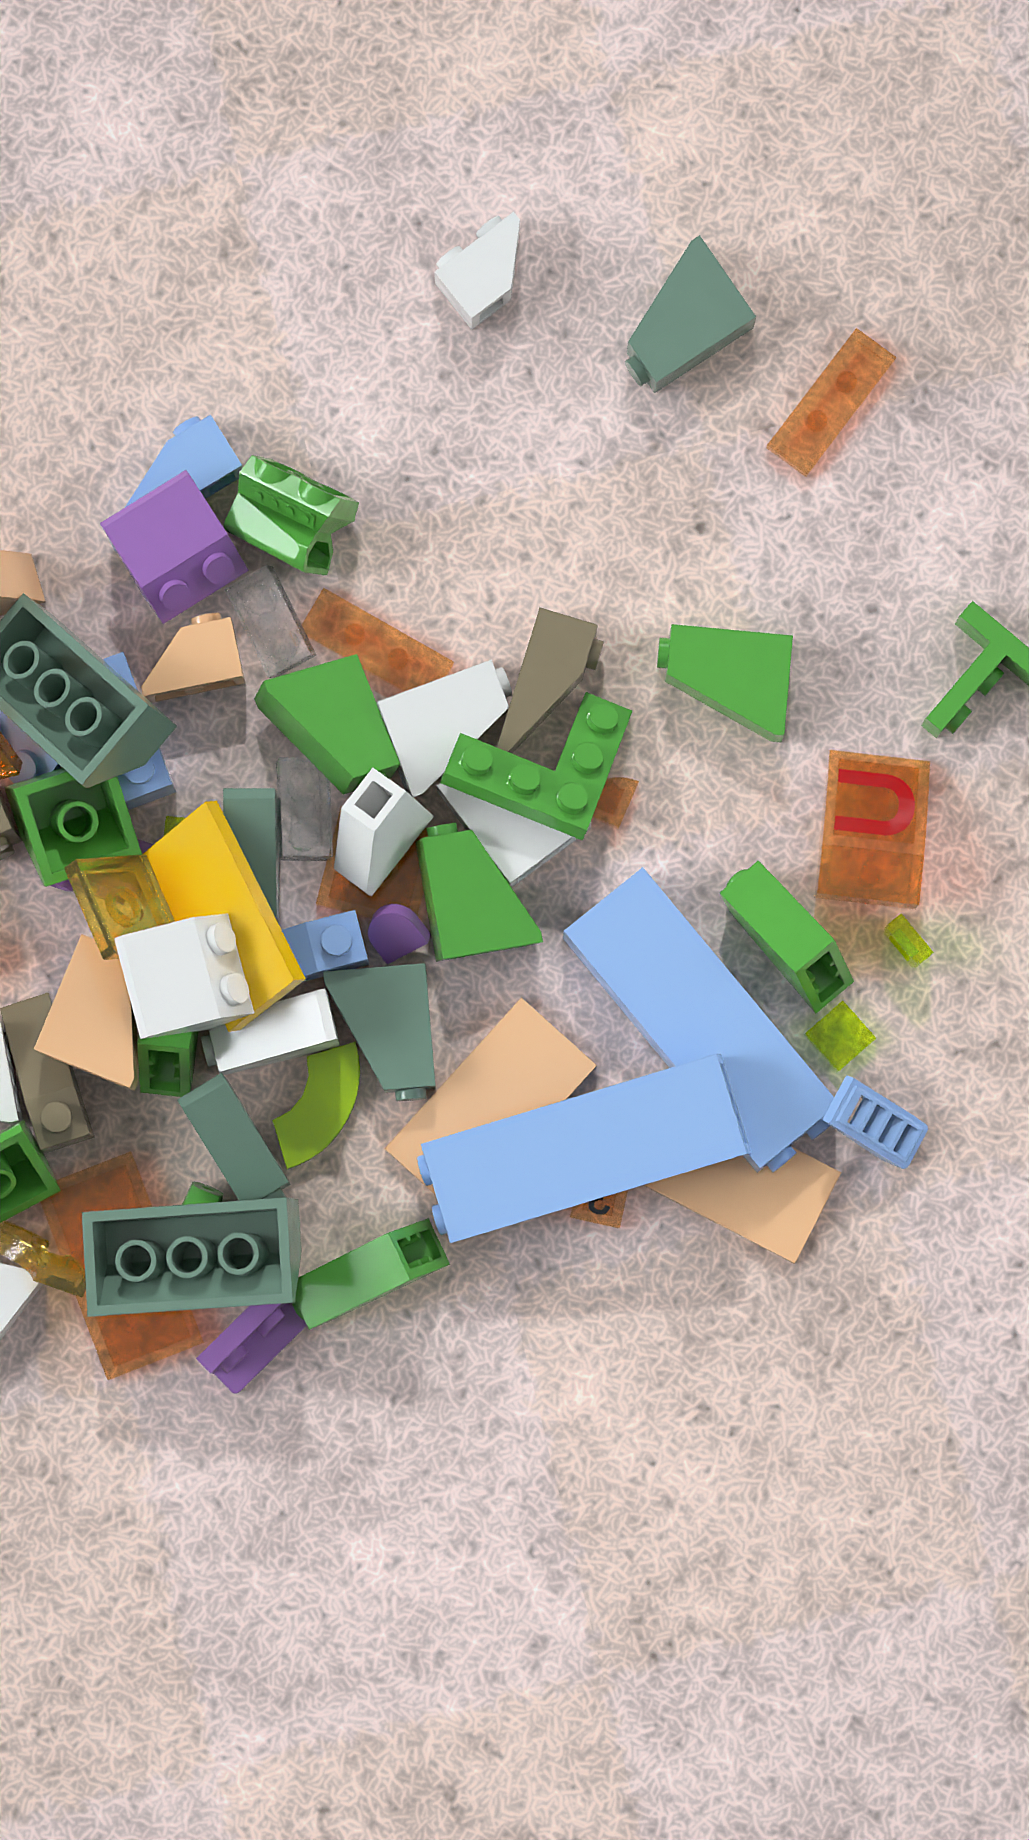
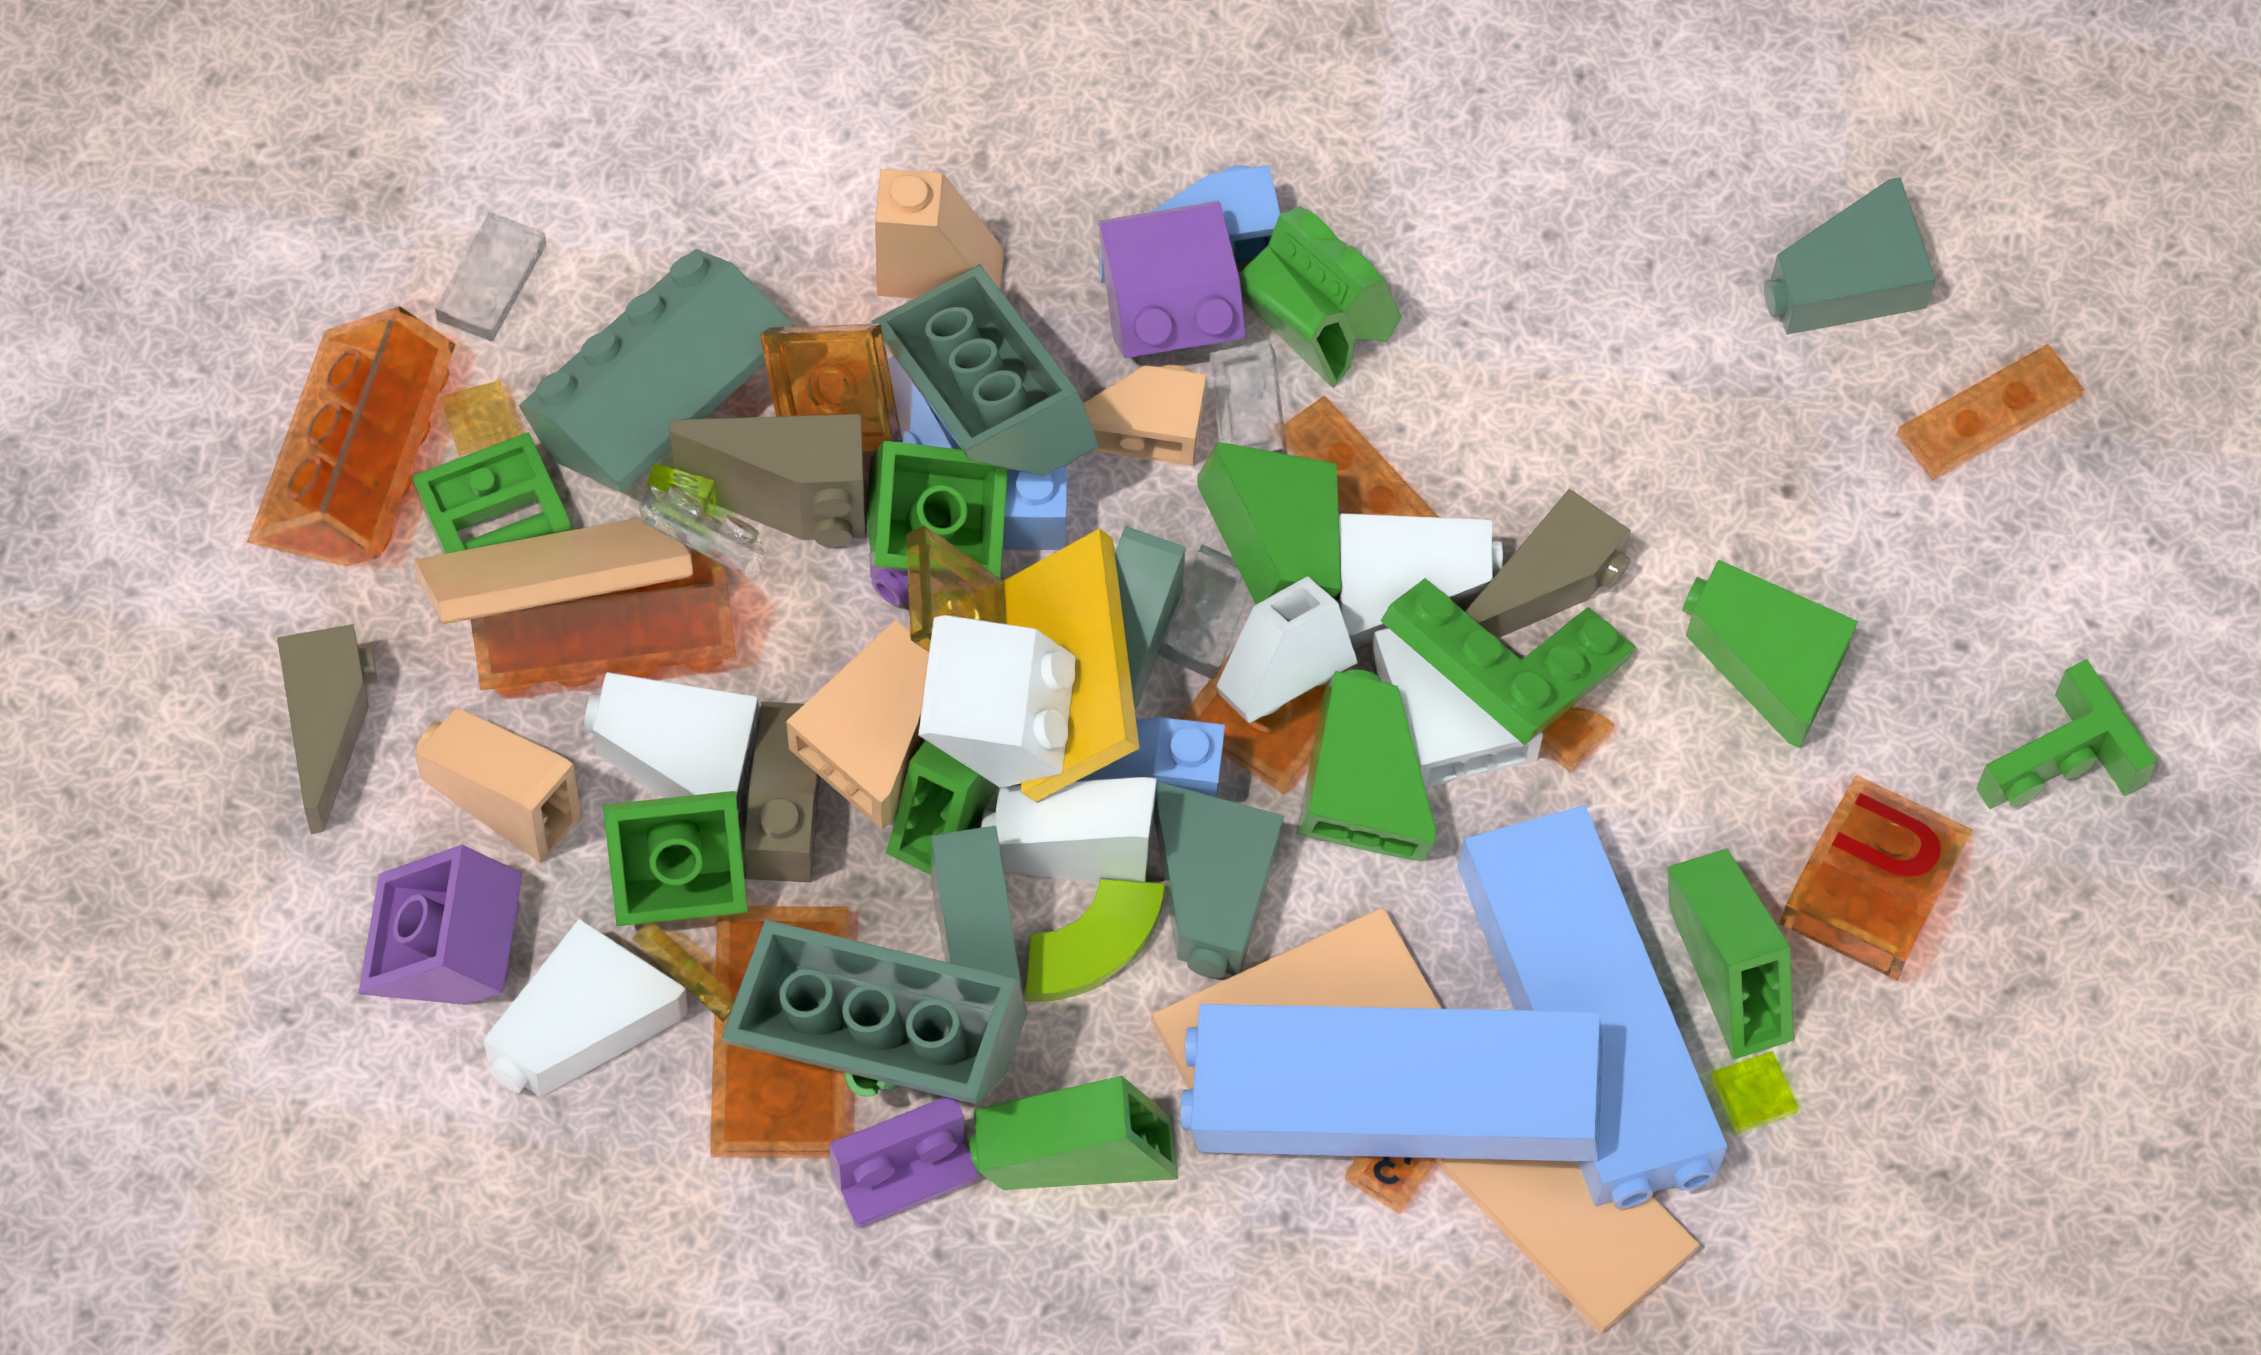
camera: 20 degrees right, 20 degrees down
(396, 932) = (1263, 777): medium lavender tile -> none
(482, 274) = (1634, 139): white slope -> none
(877, 1123) = (1789, 1222): light blue slope -> none
(907, 941) = (1876, 1010): clear neon green tile -> none

